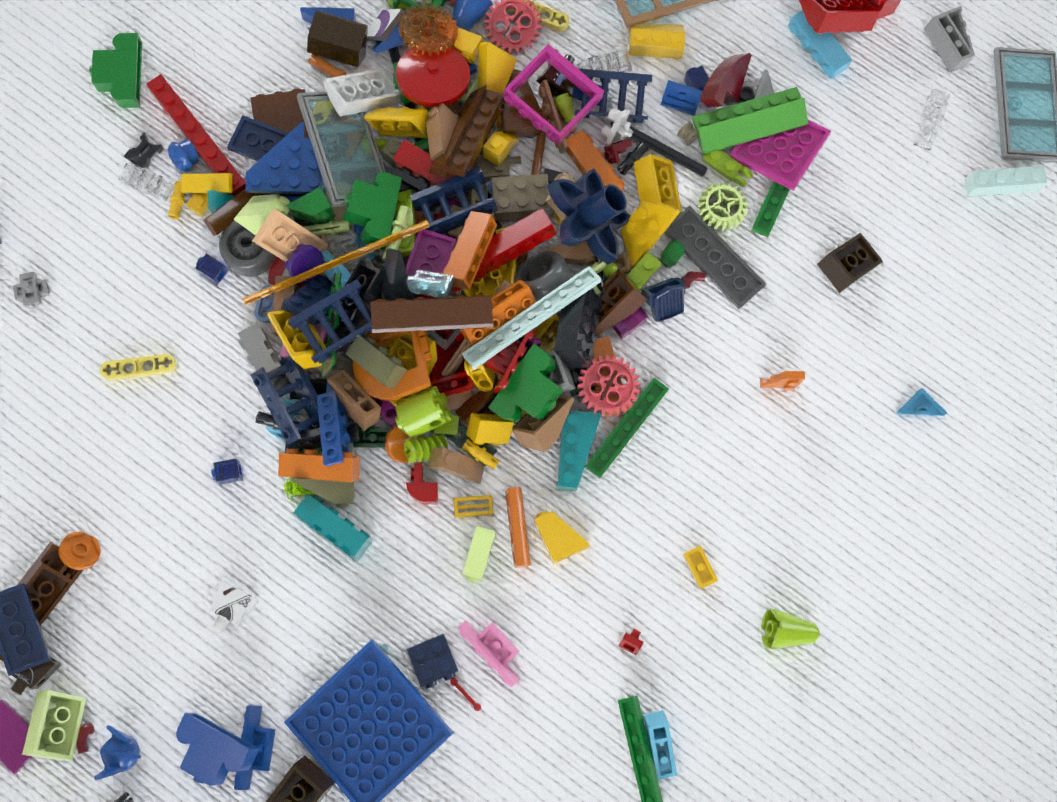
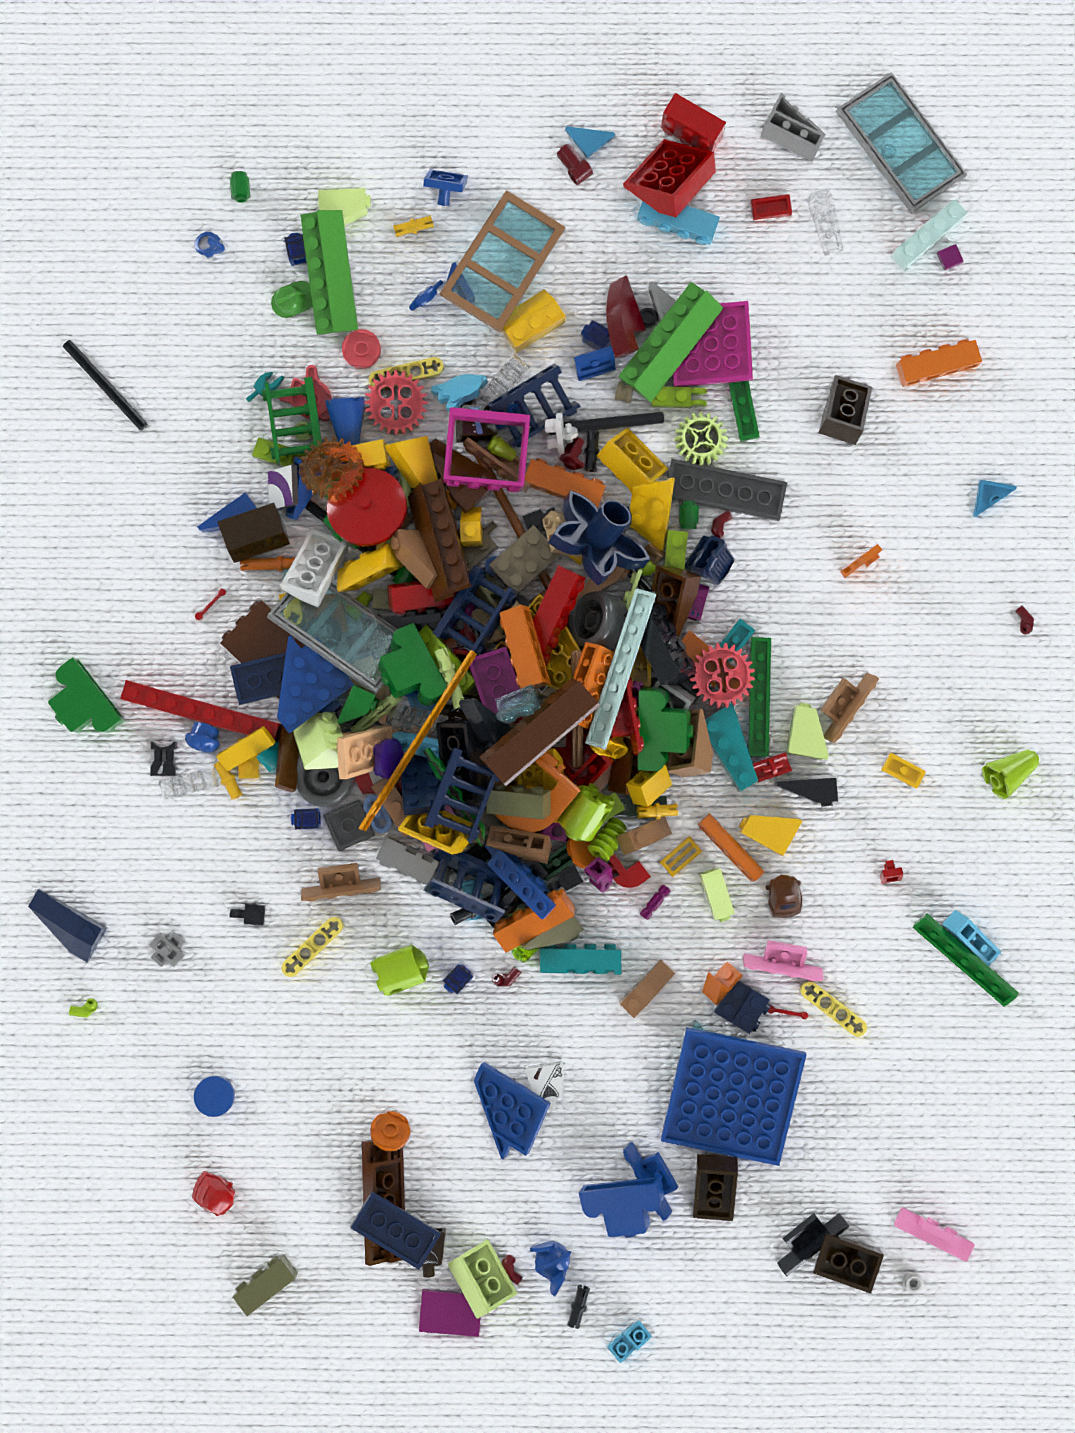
camera: 25 degrees left, 10 degrees up
(113, 310) = (253, 914): none -> black plate
(185, 605) = (511, 1110): none -> blue wing
(187, 430) = (400, 970): none -> lime cylinder
(198, 332) = (340, 881): none -> medium nougat bracket
(231, 297) = (345, 824): none -> dark grey tile
(252, 73) = (199, 615): none -> red hinge
(263, 501) = (506, 980): none -> dark red arm
(366, 589) = (646, 988): none -> medium nougat slope
(372, 458) = (567, 878): none -> black plate
(398, 470) = (600, 874): none -> magenta leg
(426, 526) = (655, 902): none -> magenta axle
(428, 630) = (719, 985): none -> orange slope
(506, 718) = (833, 1008): none -> light yellow beam
(531, 598) = (784, 896): none -> reddish brown helmet
(568, 47) = (459, 390): none -> medium azure tile
(596, 487) = (772, 767): none -> red hips
(618, 531) = (814, 790): none -> black slope
(642, 482) = (806, 733): none -> yellowish green slope
(646, 370) = (738, 636): none -> teal plate
(689, 480) = (844, 704): none -> medium nougat bracket
(884, 522) = (1027, 620): none -> dark red arm
(896, 83) = (771, 207): none -> red tile
(948, 278) = (938, 363): none -> orange brick
(1010, 209) = (950, 257): none -> magenta tile

